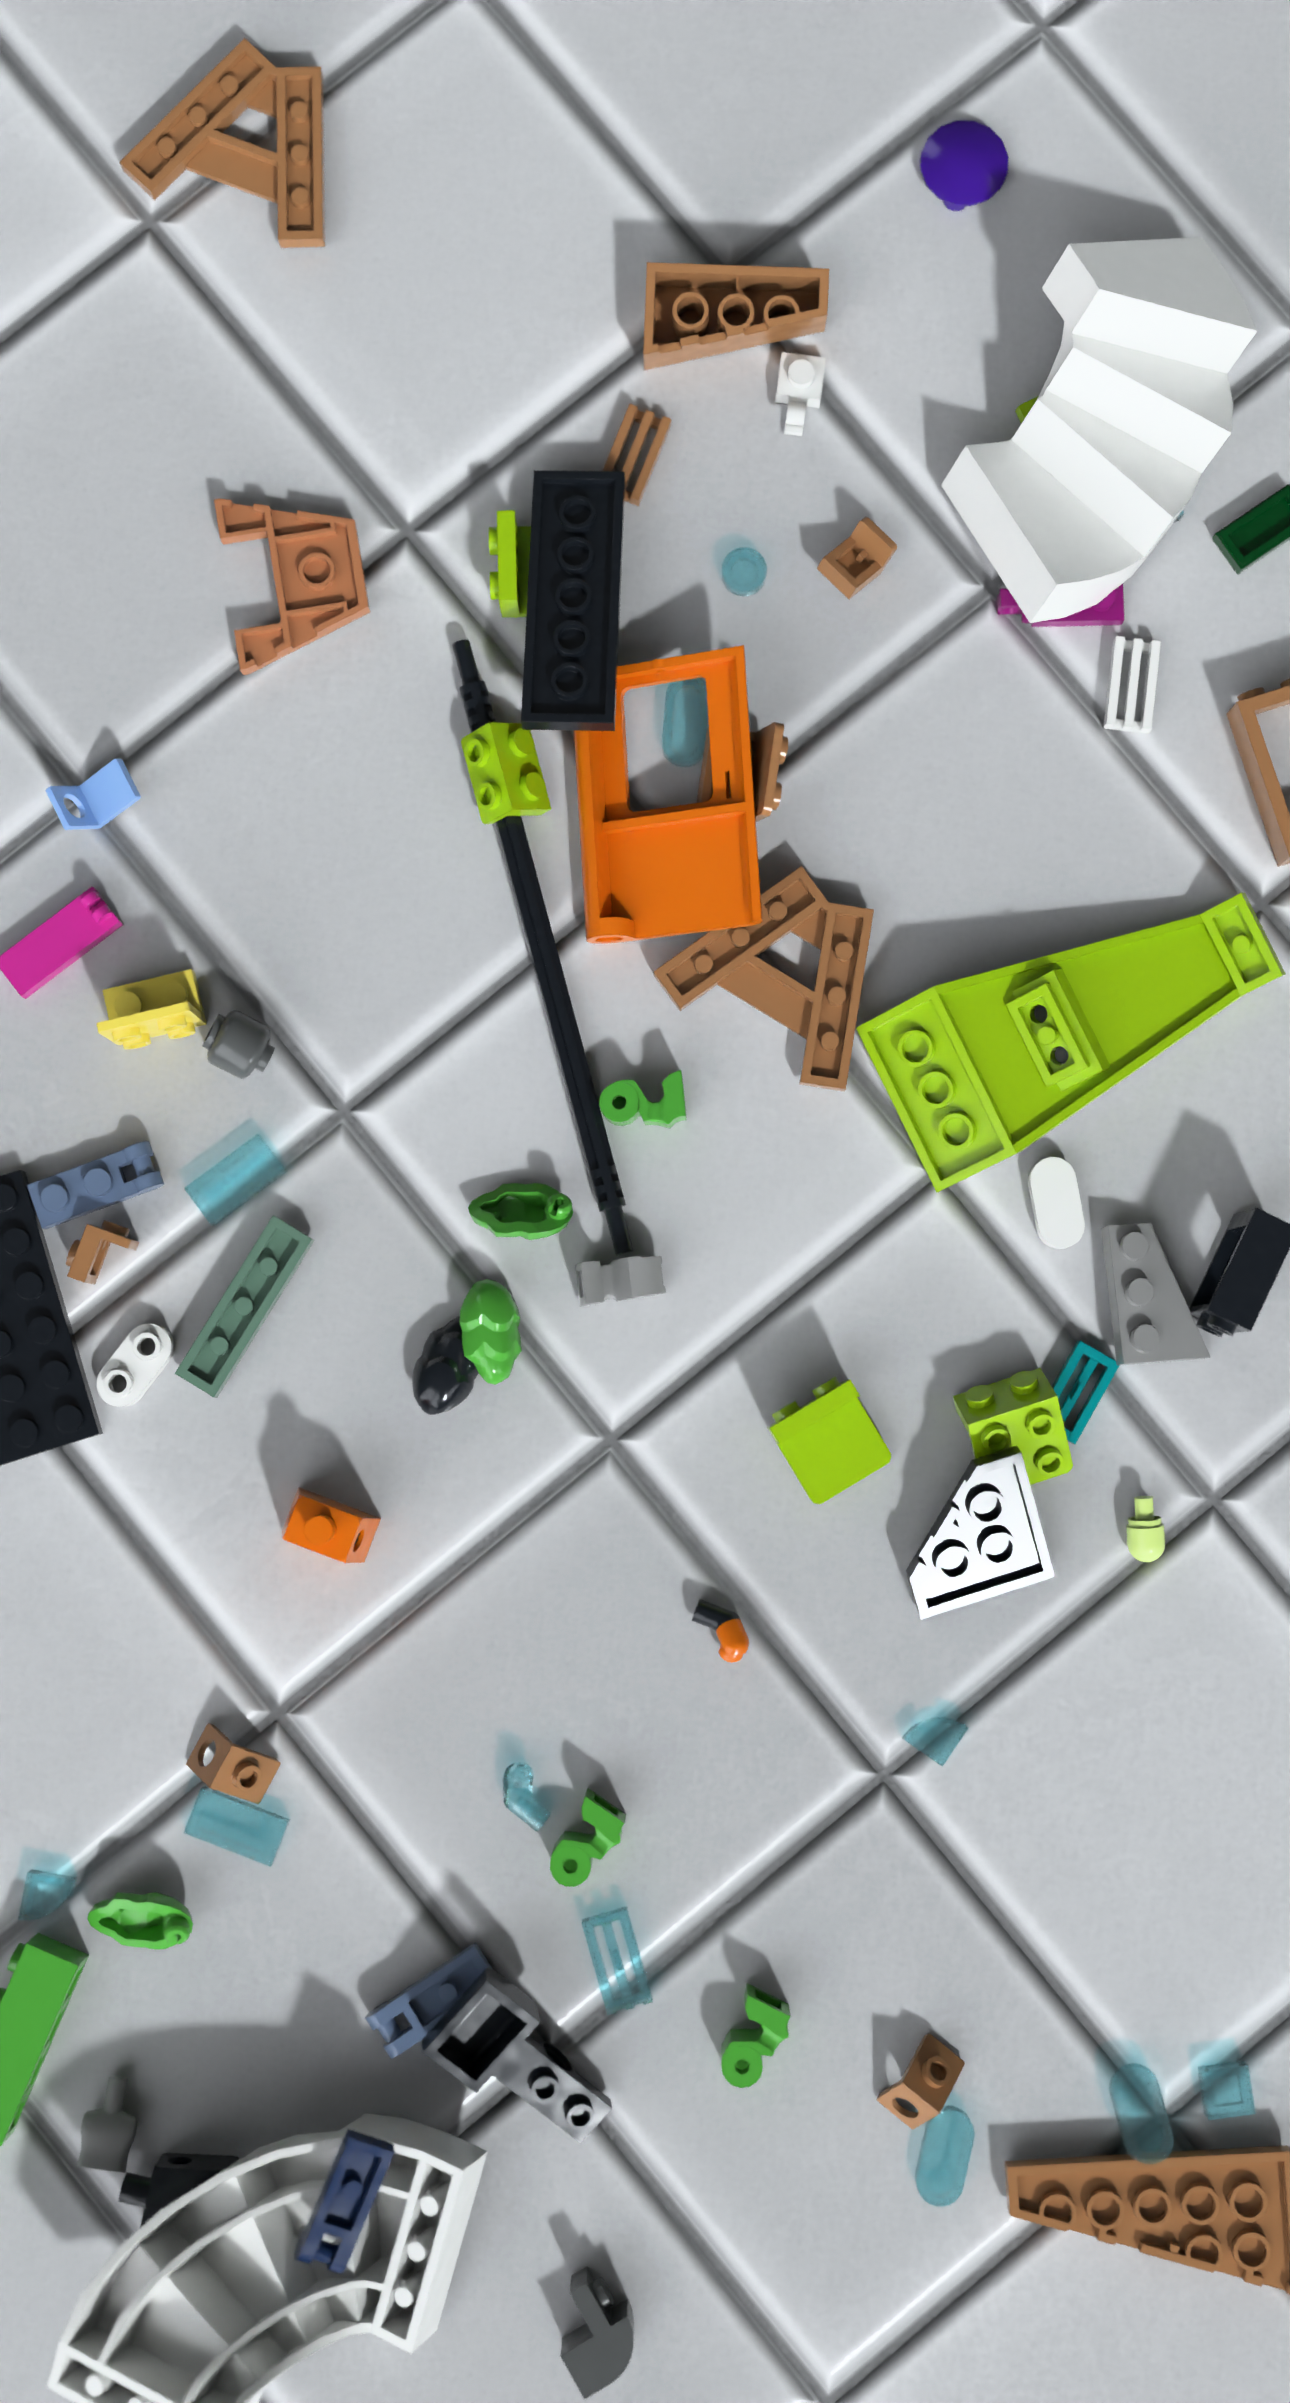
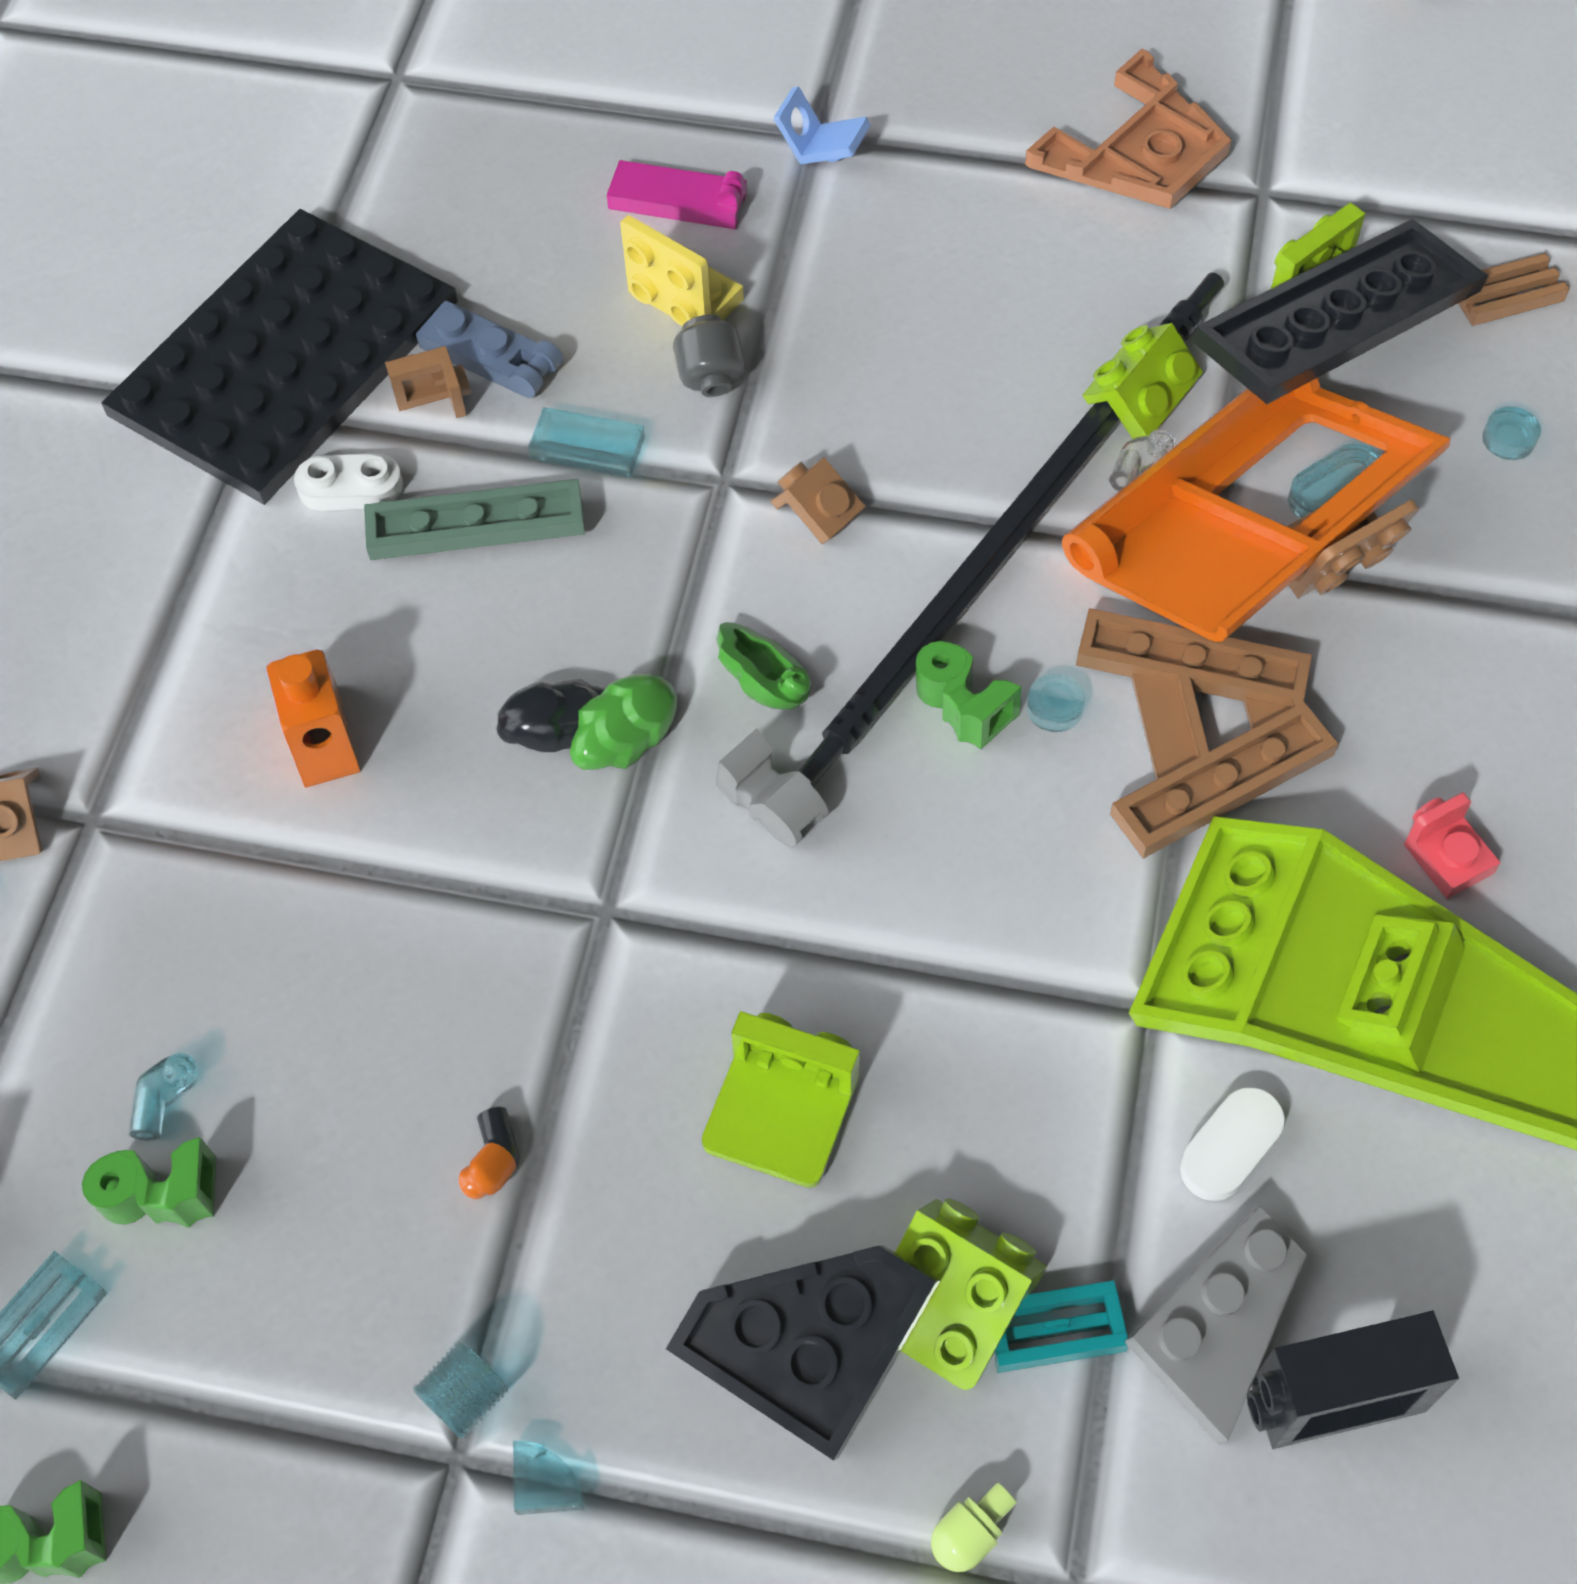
camera: 50 degrees right, 25 degrees down
(418, 1068) = (818, 498): none -> medium nougat bracket
(560, 828) = (1139, 455): none -> clear arm
(695, 1047) = (1055, 702): none -> clear light blue tile
(855, 1749) = (461, 1389): none -> clear light blue piece
(988, 905) = (1449, 846): none -> coral bracket

